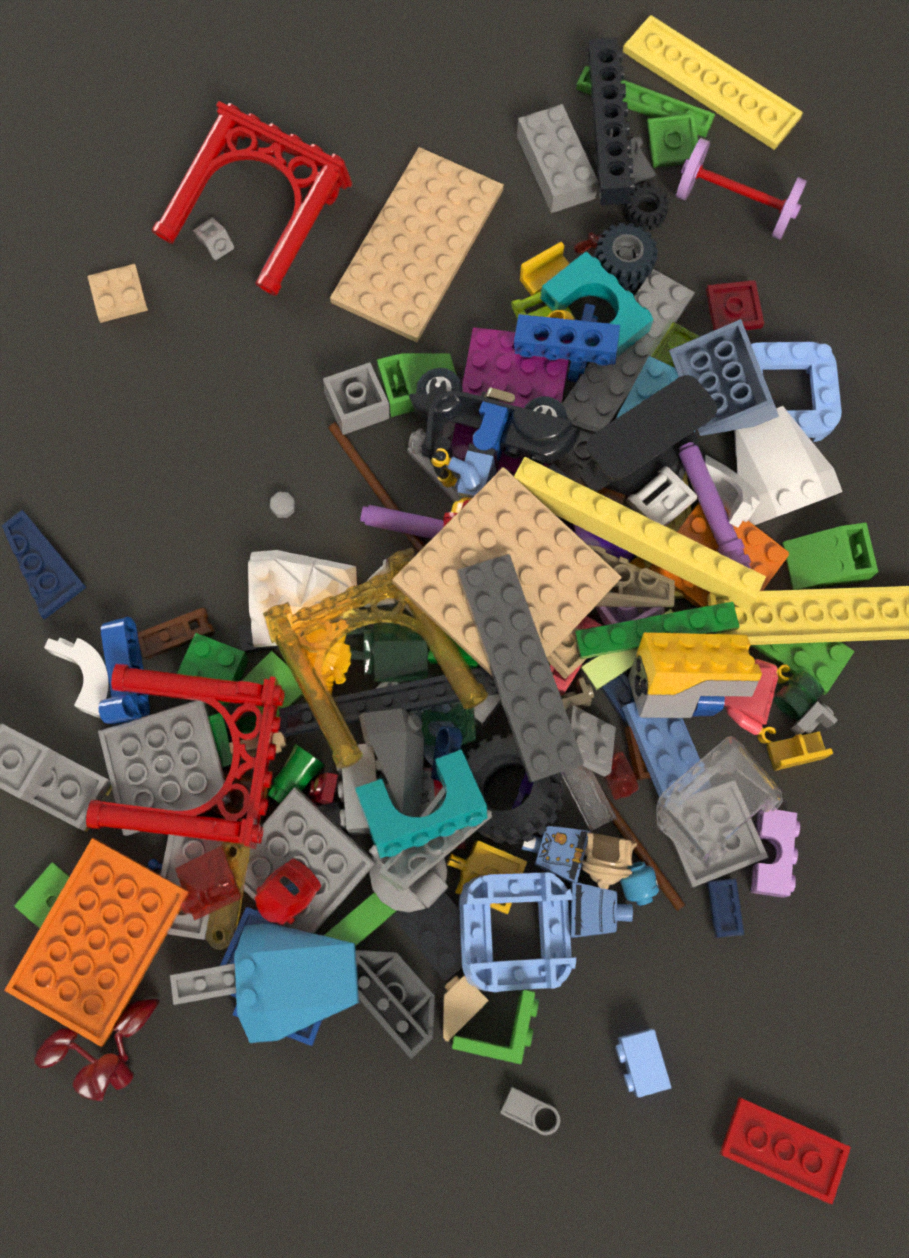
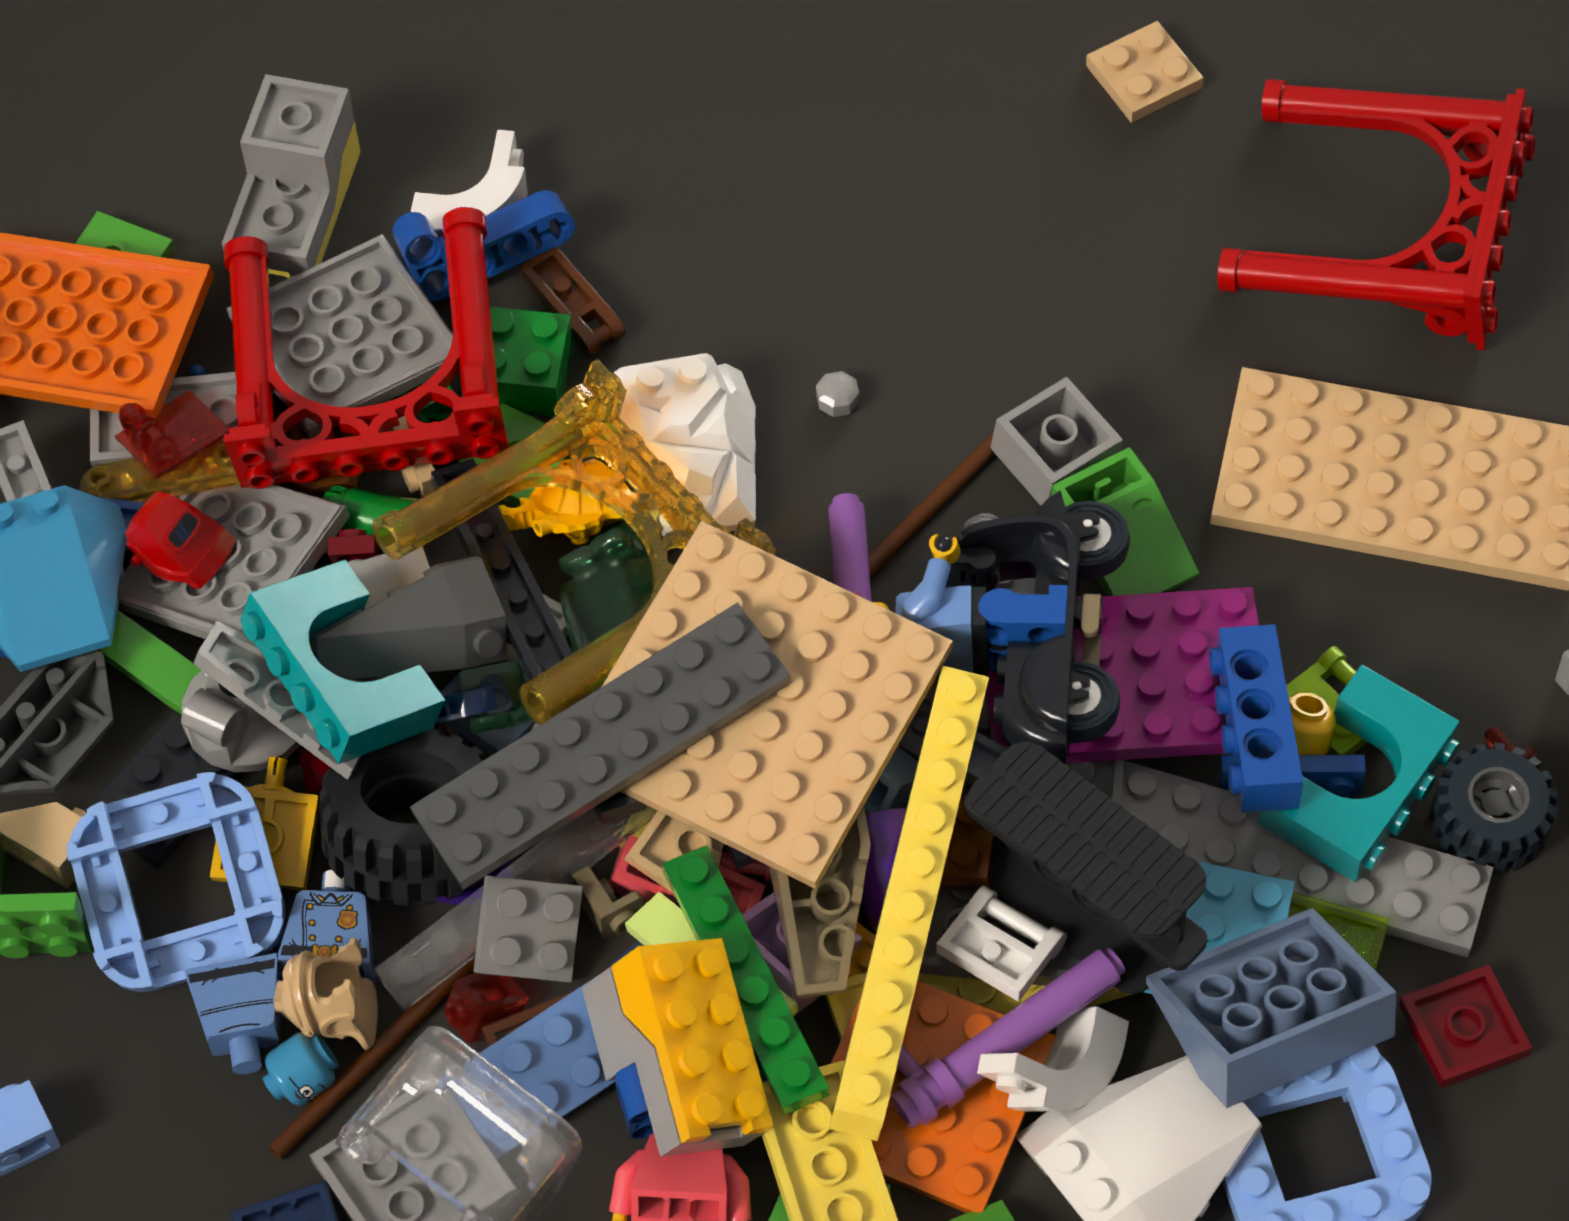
camera: 80 degrees right, 15 degrees down
(46, 572) = (638, 98): dark blue wing -> none
(214, 238) = (1290, 172): light grey bracket -> none
(542, 268) = (1427, 677): yellow panel -> none

